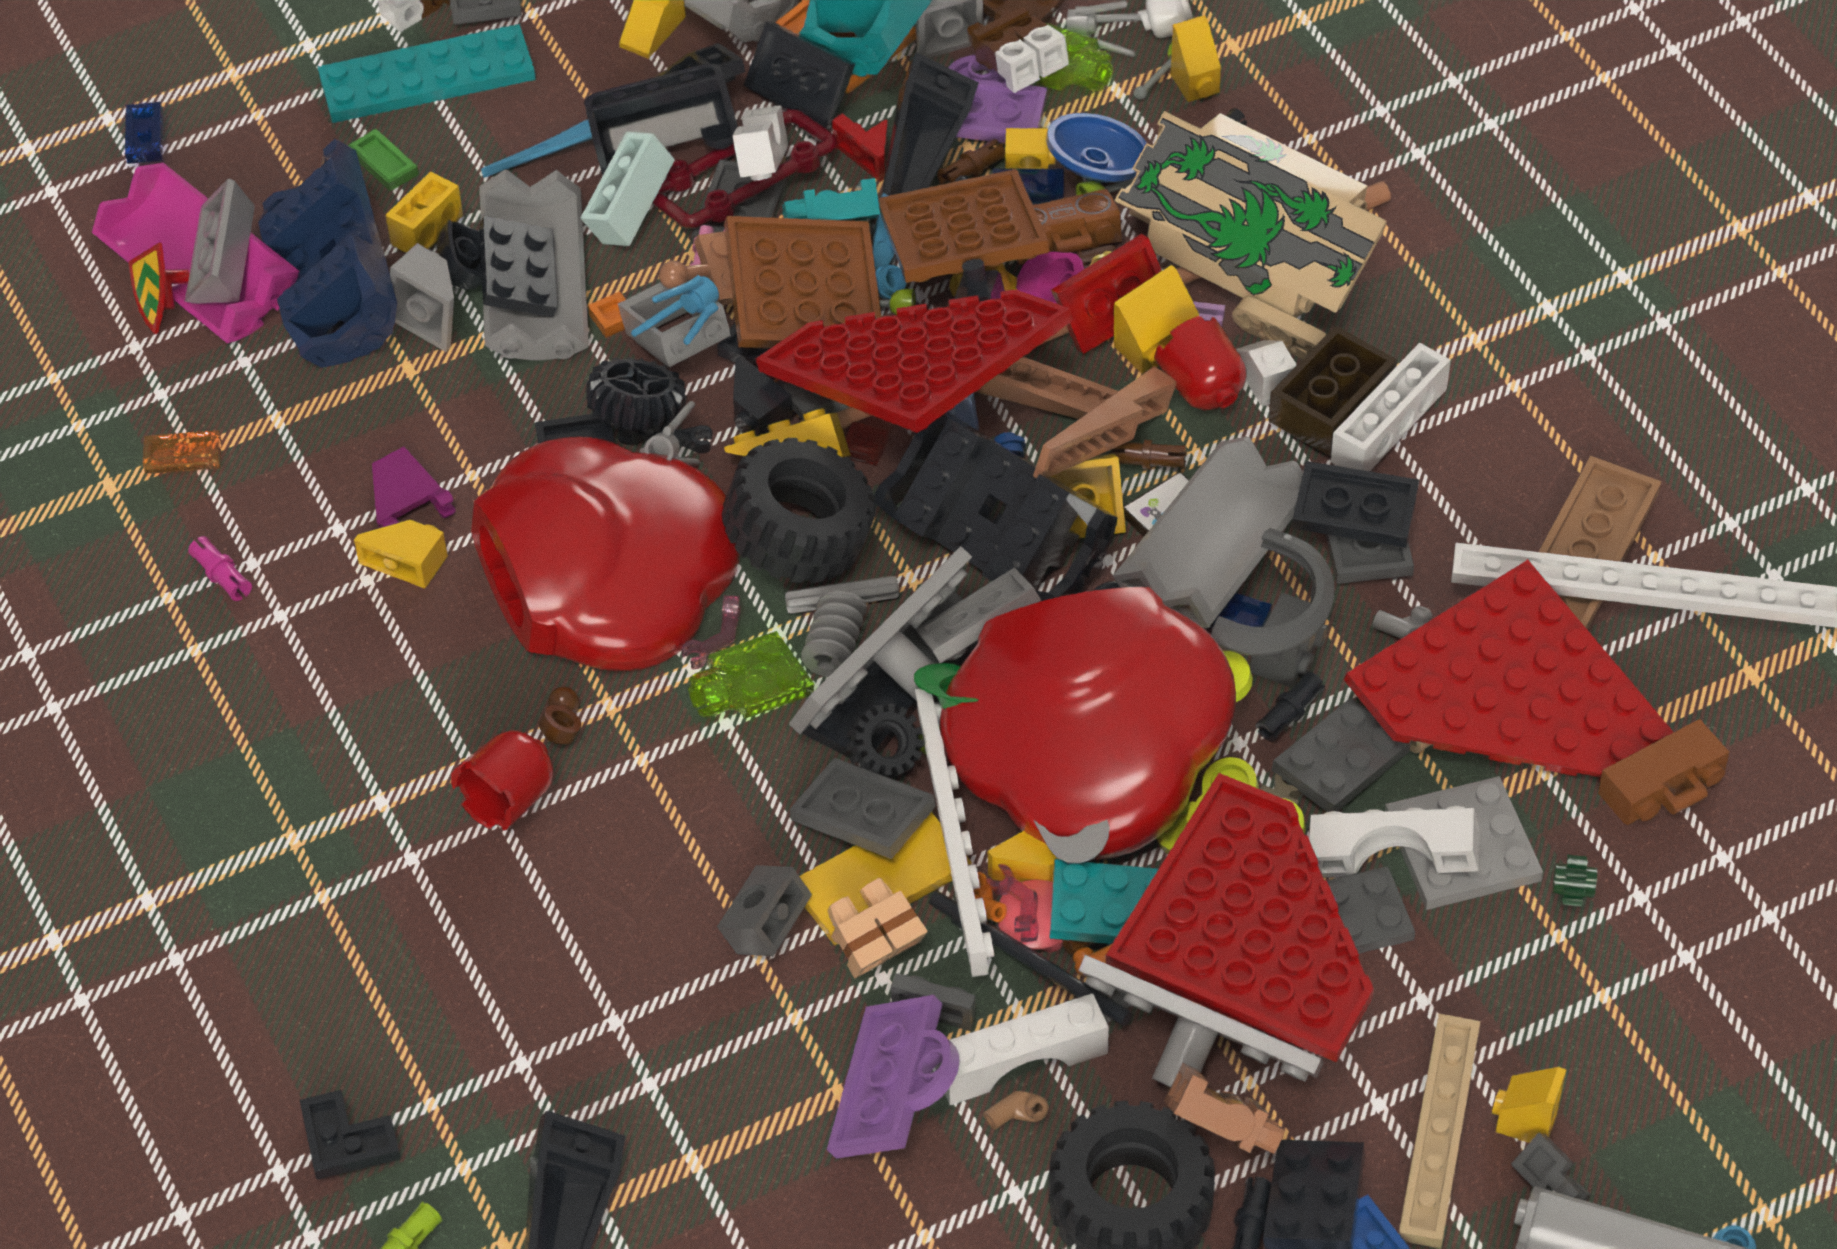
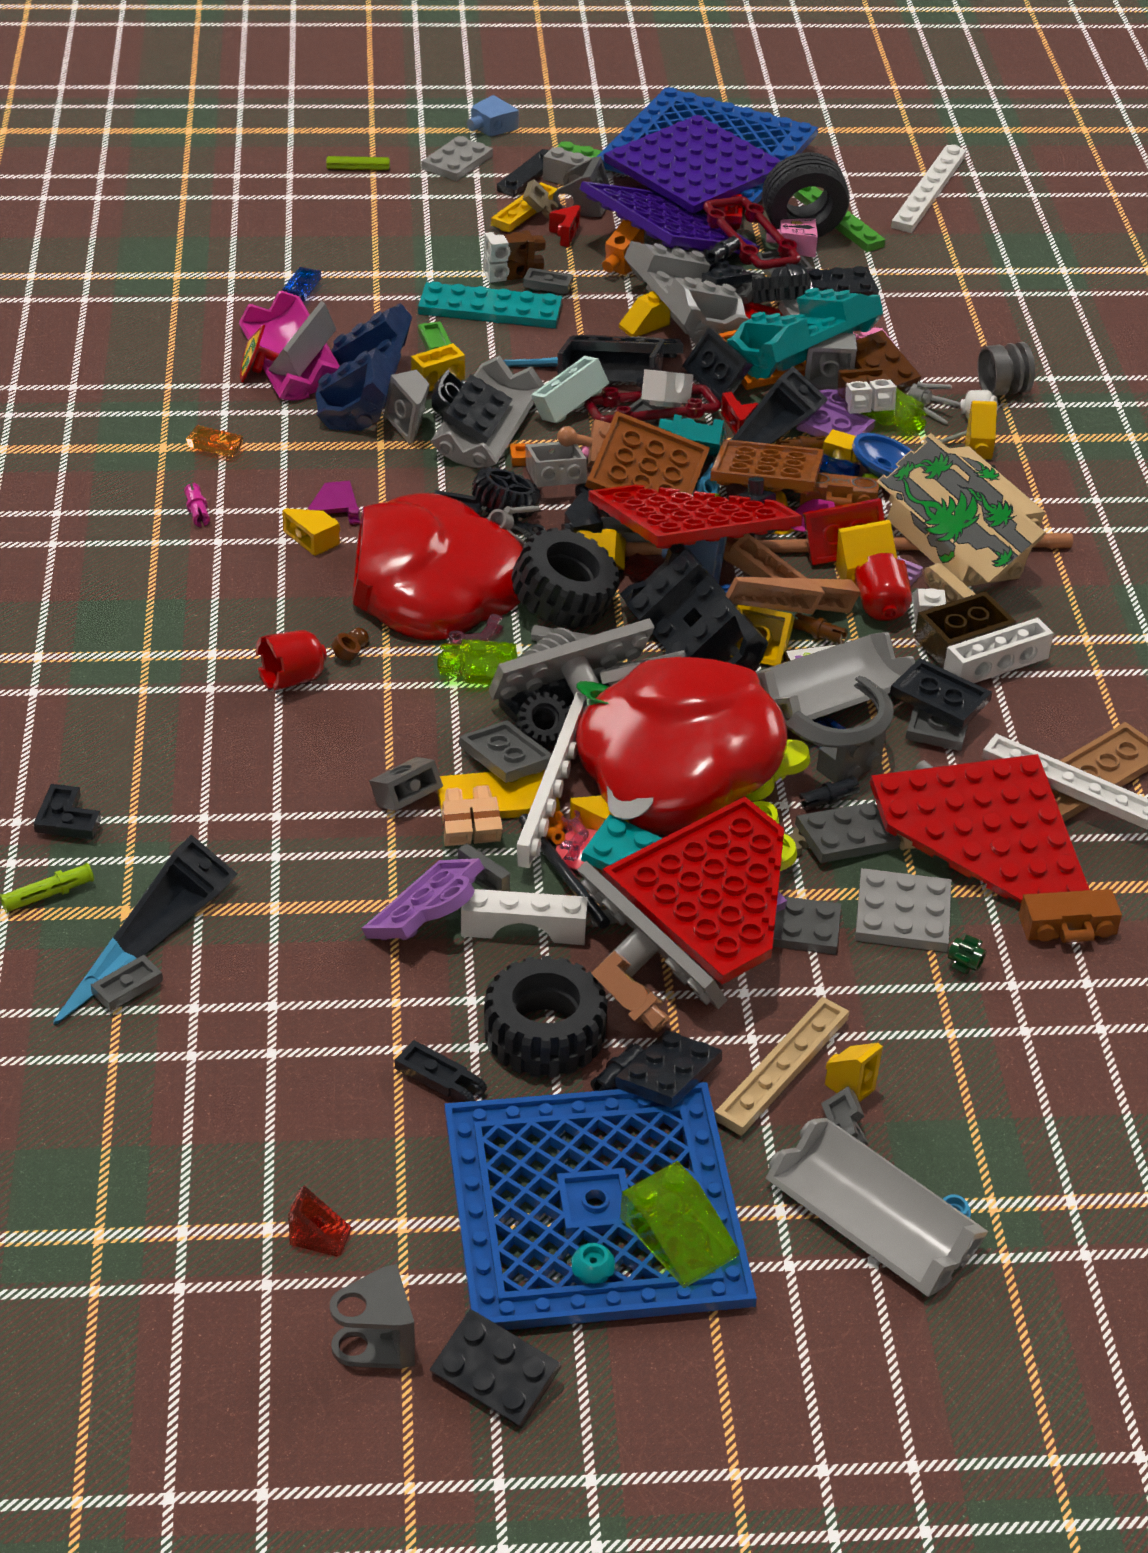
camera: 20 degrees right, 10 degrees down
(697, 297) = (572, 447): dark azure plant -> none
(1017, 1106) = (503, 950): medium nougat arm -> none
(1349, 839) = (820, 876): white arch -> none

